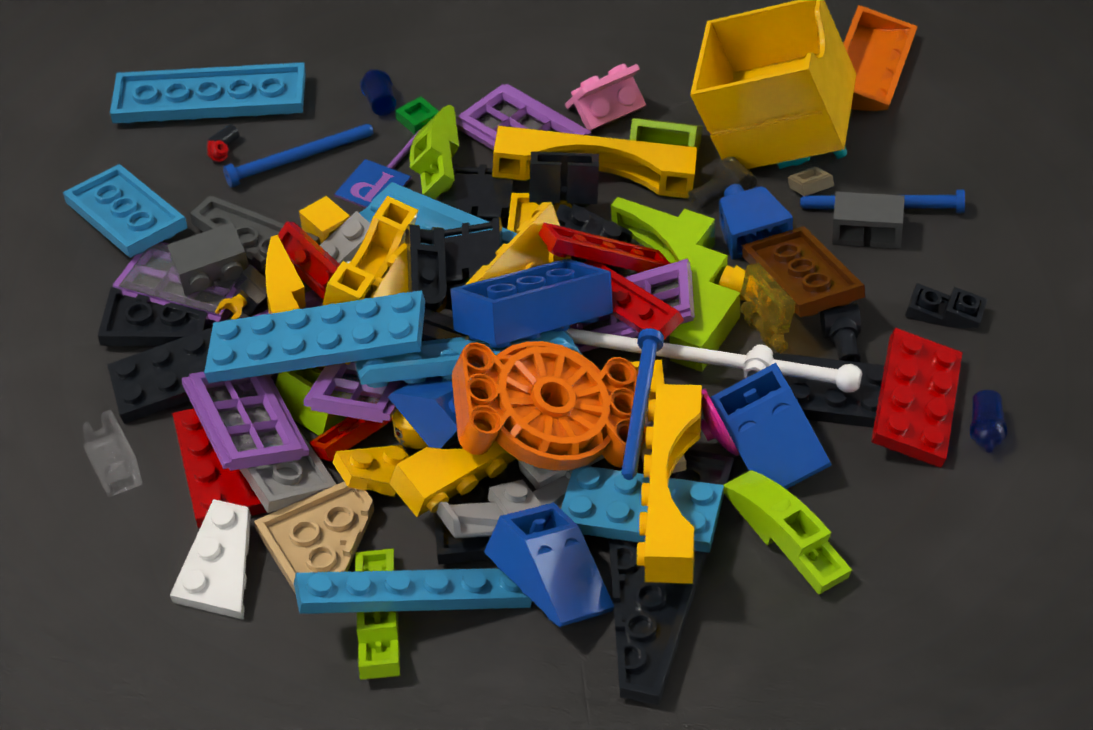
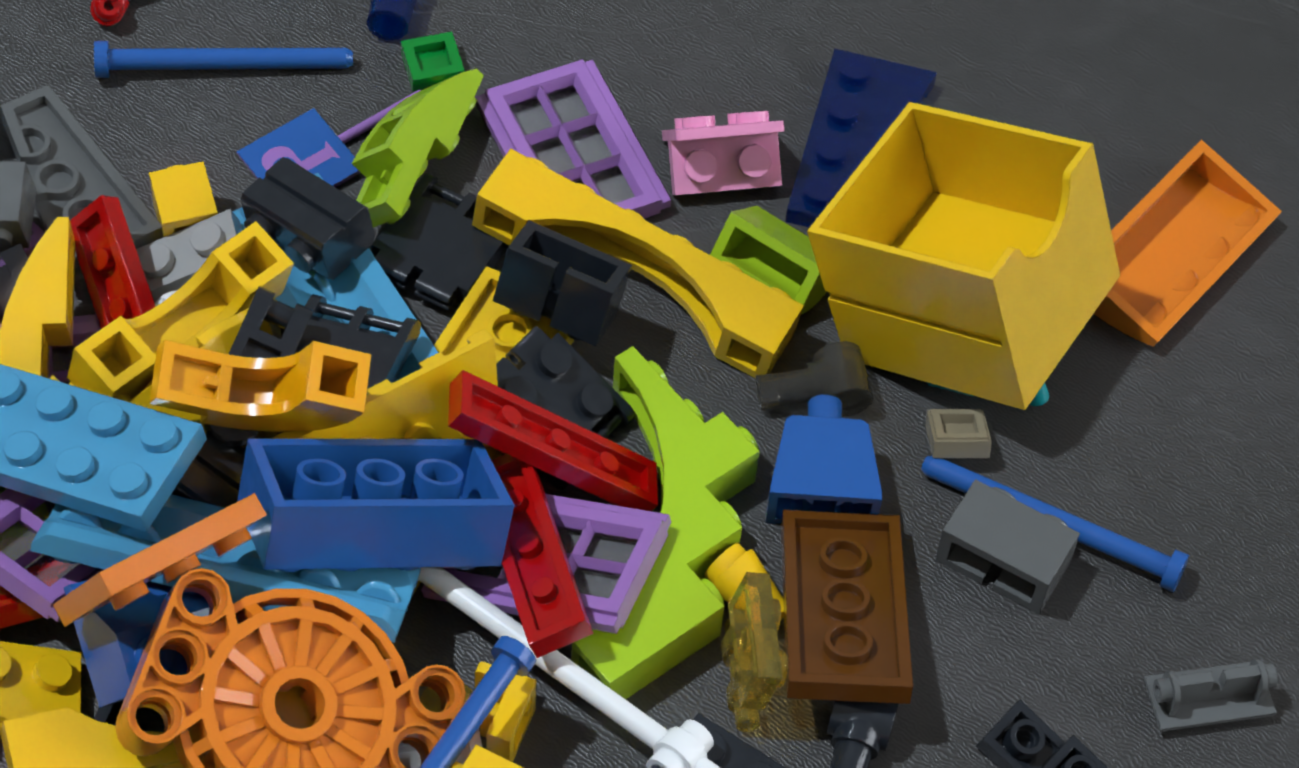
camera: 15 degrees right, 10 degrees up
(415, 190) = (308, 218): none -> black brick
(437, 356) = (171, 557): none -> orange wing
(459, 262) = (294, 392): none -> light orange arch
(669, 70) = (853, 113): none -> clear blue wing
(1013, 247) = (1212, 695): none -> dark grey hinge

